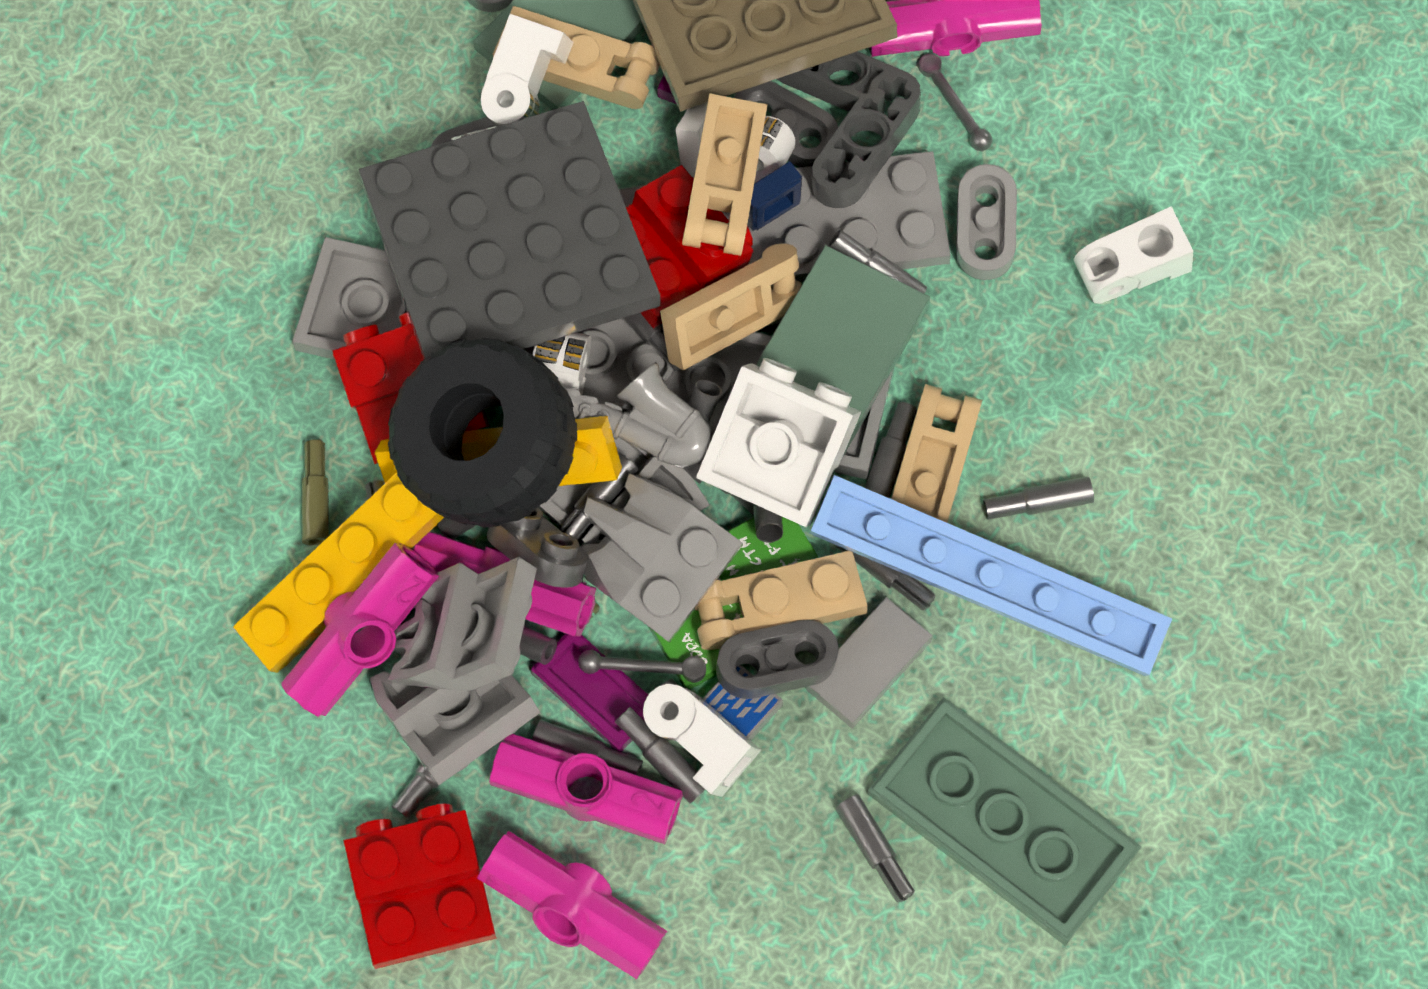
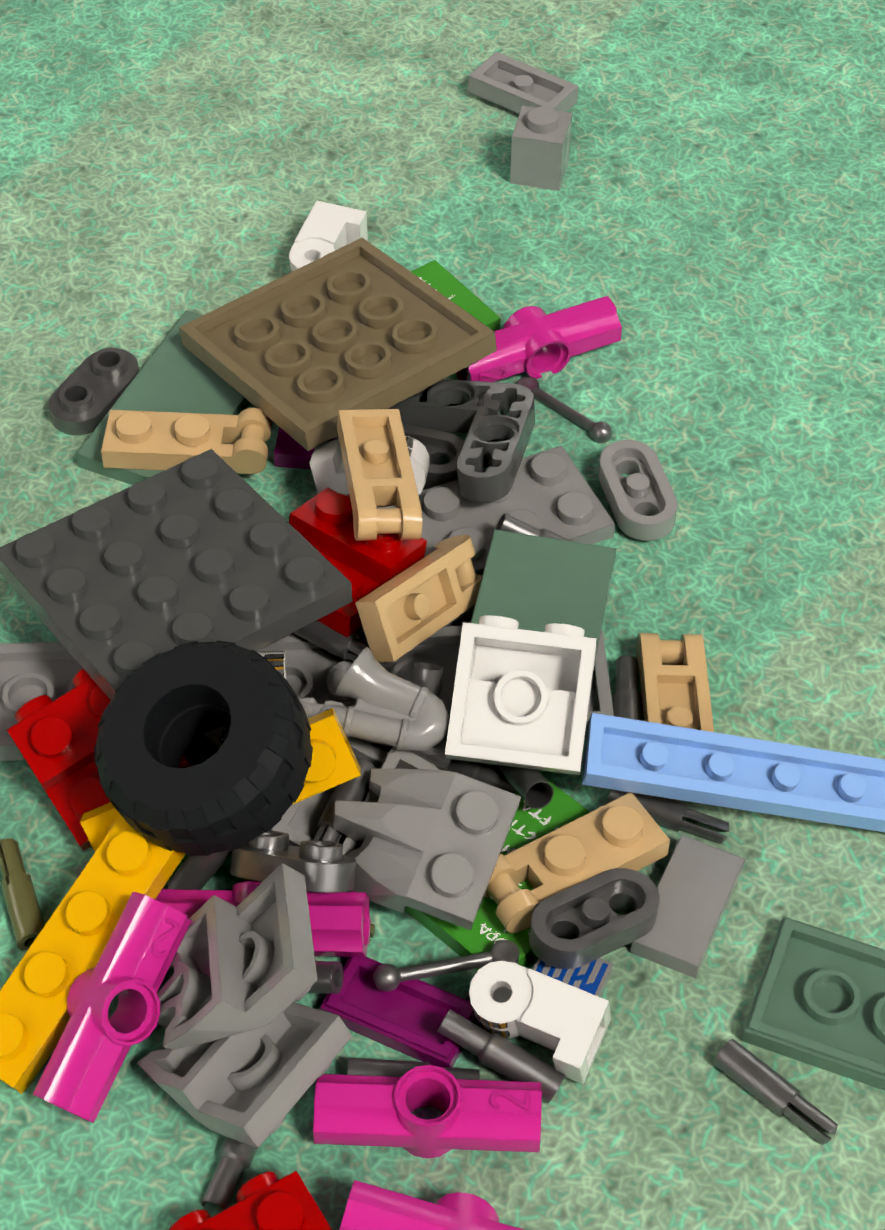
camera: 20 degrees left, 20 degrees down
(520, 69) = (136, 435): white leg -> none
(774, 196) = (434, 492): dark blue tile -> none
(1042, 498) = (798, 709): flat silver pin -> none
(1135, 257) = (793, 483): white leg -> none

